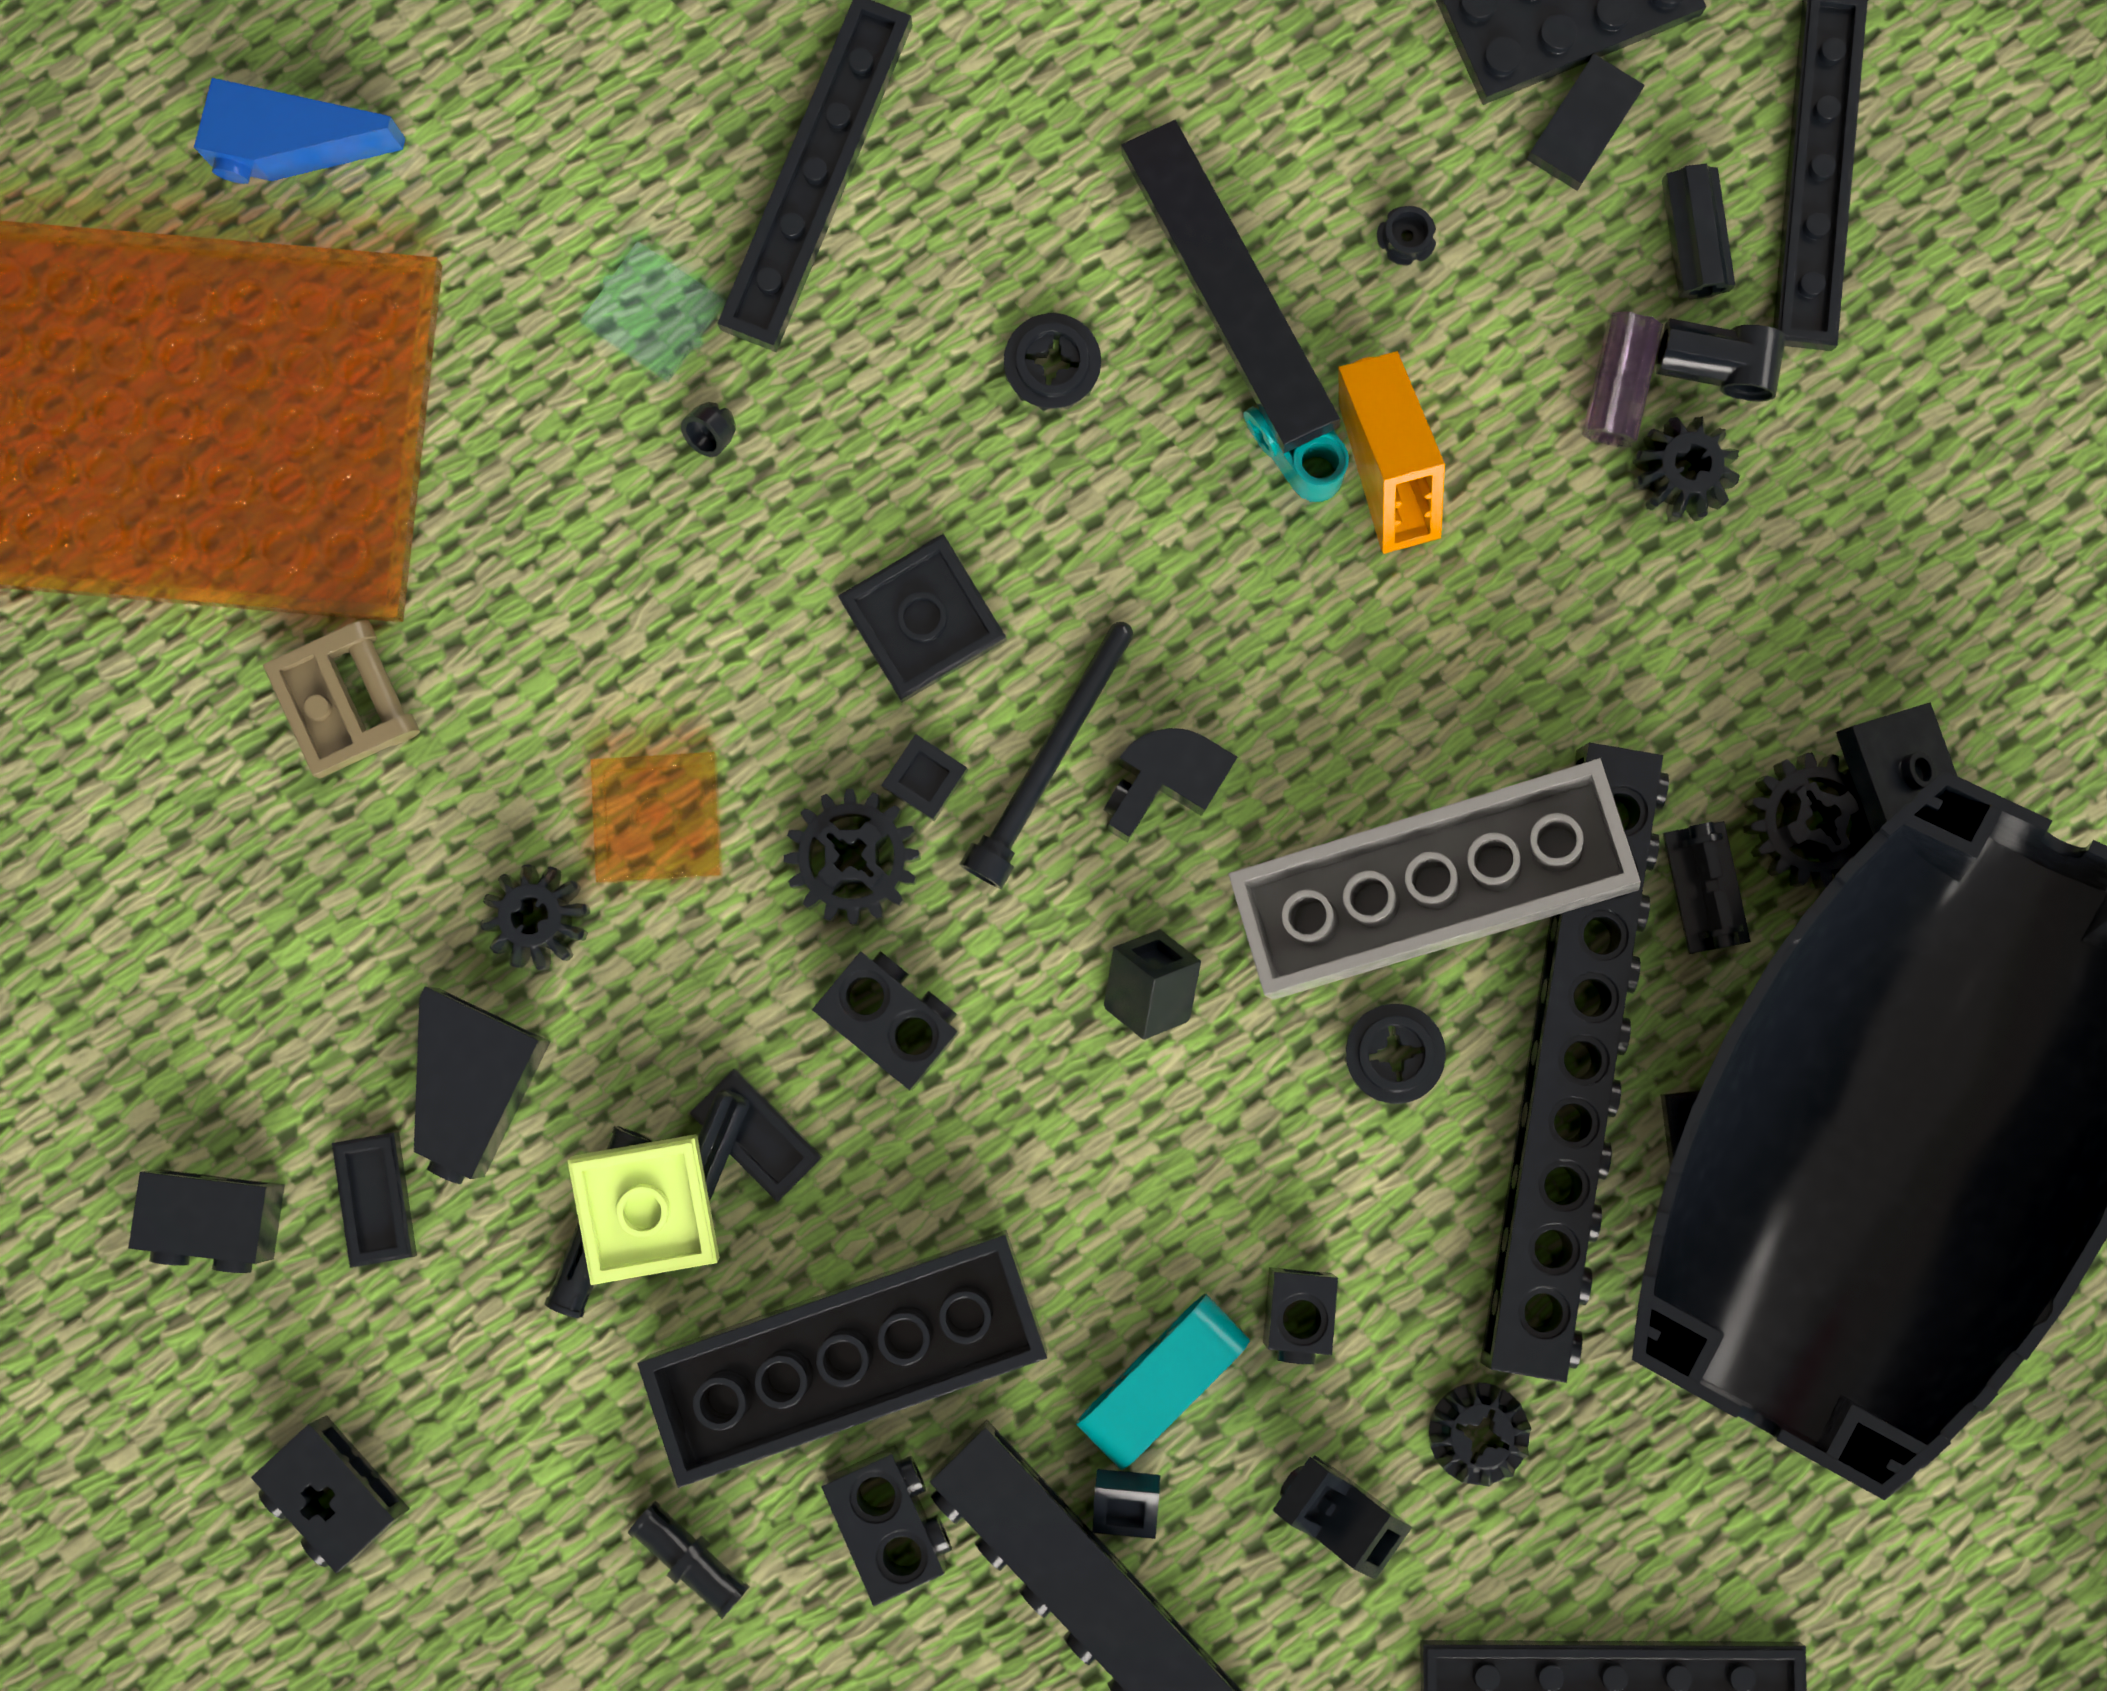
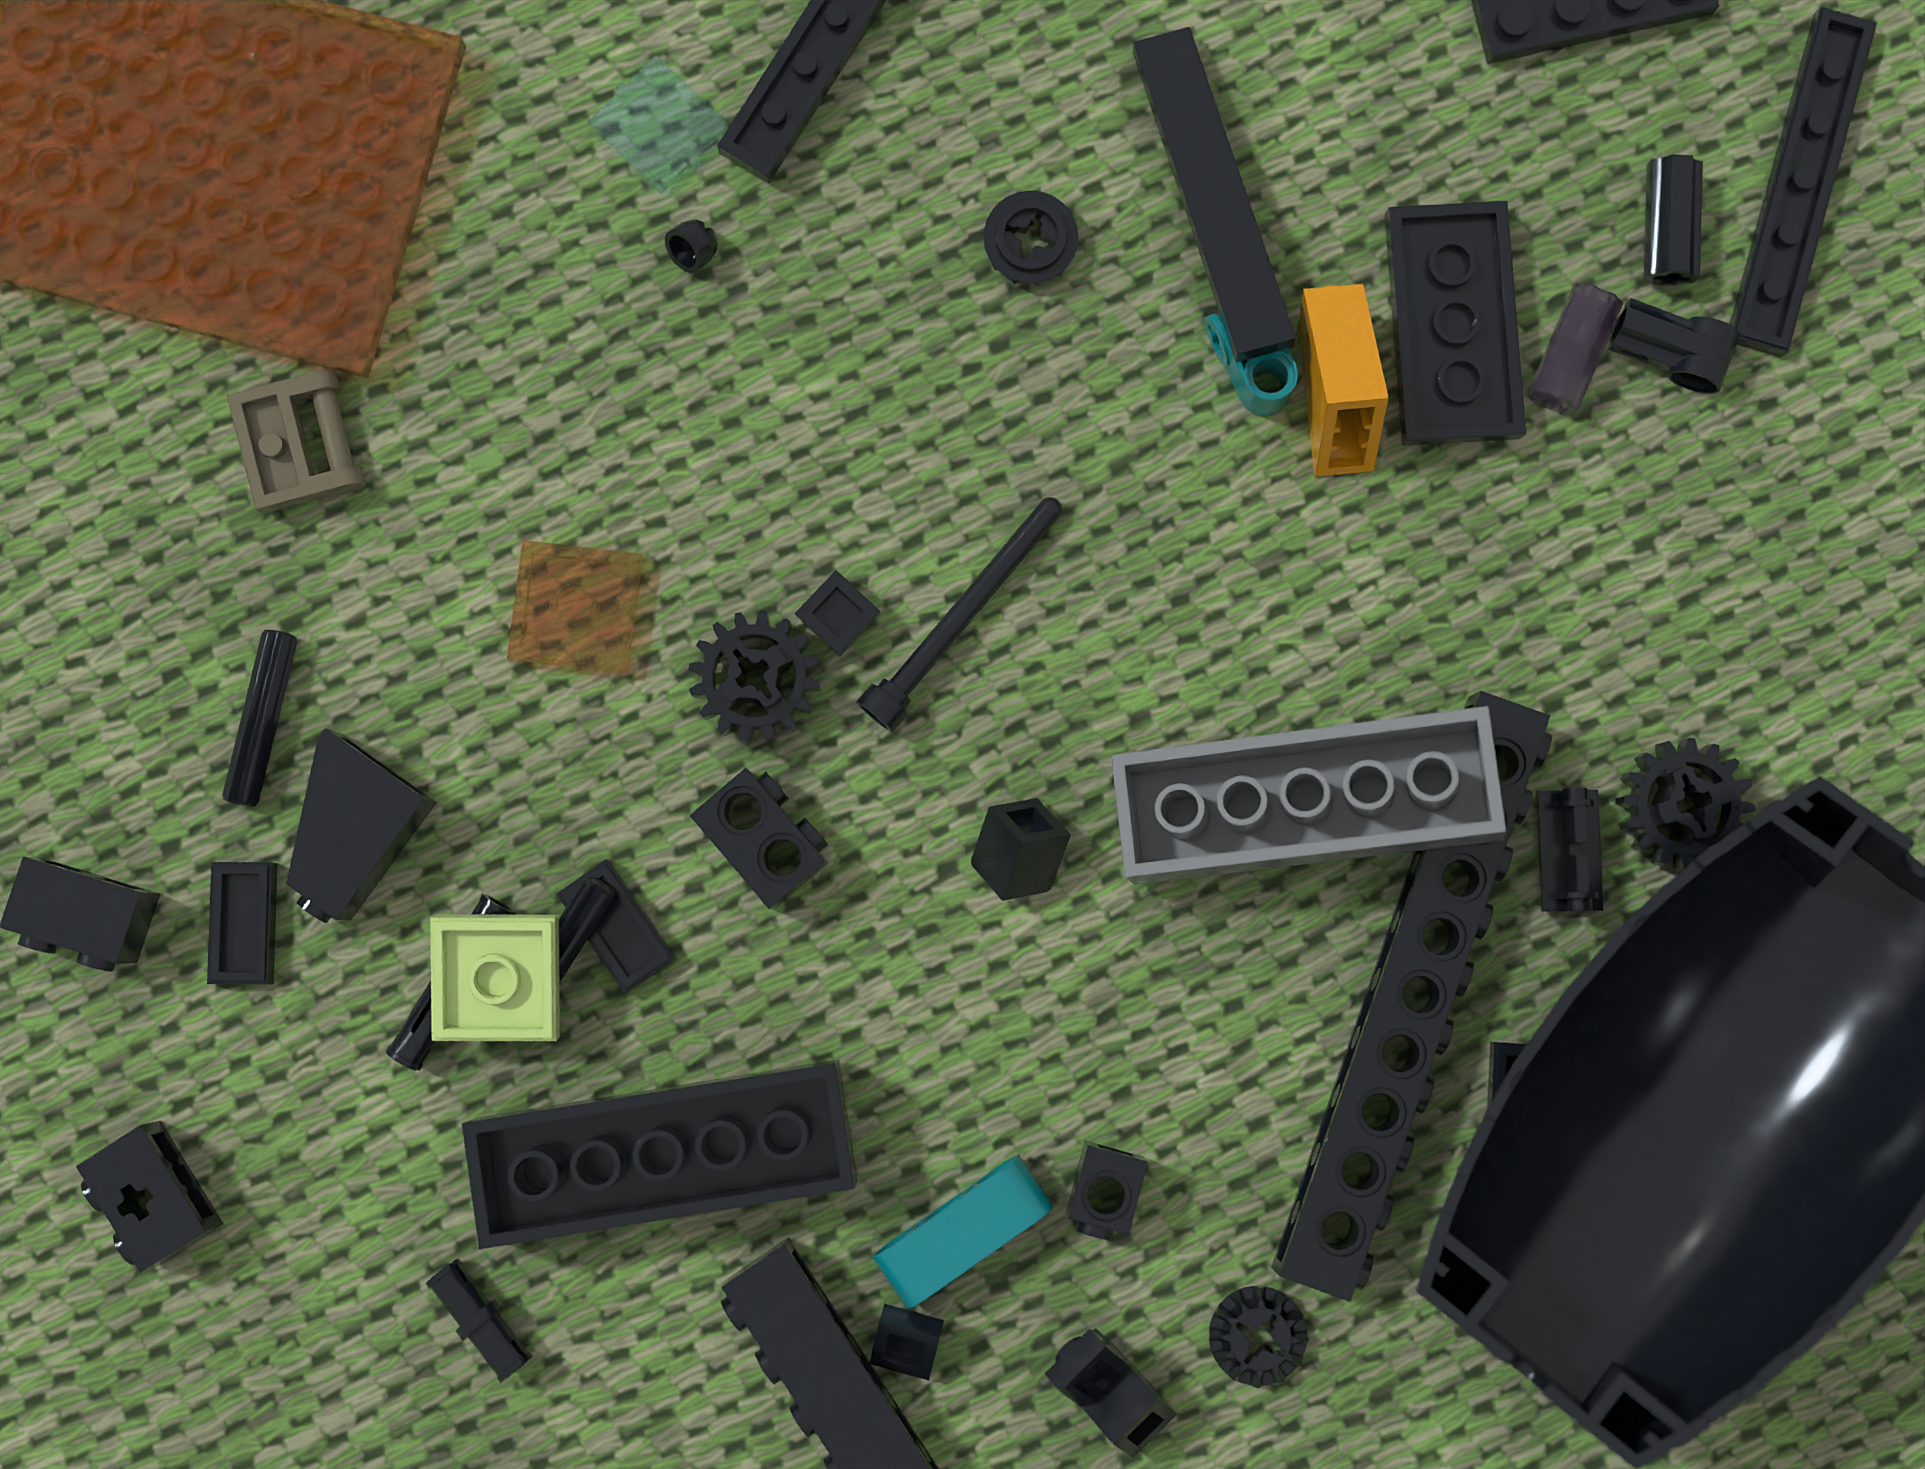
camera: 10 degrees right, 0 degrees up
(354, 987) = (259, 718): none -> black axle
(551, 931) = (431, 663): black gear -> none
(871, 1528) = (657, 1321): black brick -> none
(922, 618) = (863, 461): black tile -> none
(1170, 762) = (1077, 640): black brick -> none
(1411, 220) = (1399, 162): black plate -> none
(1418, 1072) = (1260, 978): black gear -> none
(1496, 374) = (1455, 323): none -> black plate
(1585, 122) = (1583, 97): black tile -> none
(1667, 483) = (1642, 438): black gear -> none
(1894, 760) = (1772, 758): black plate -> none

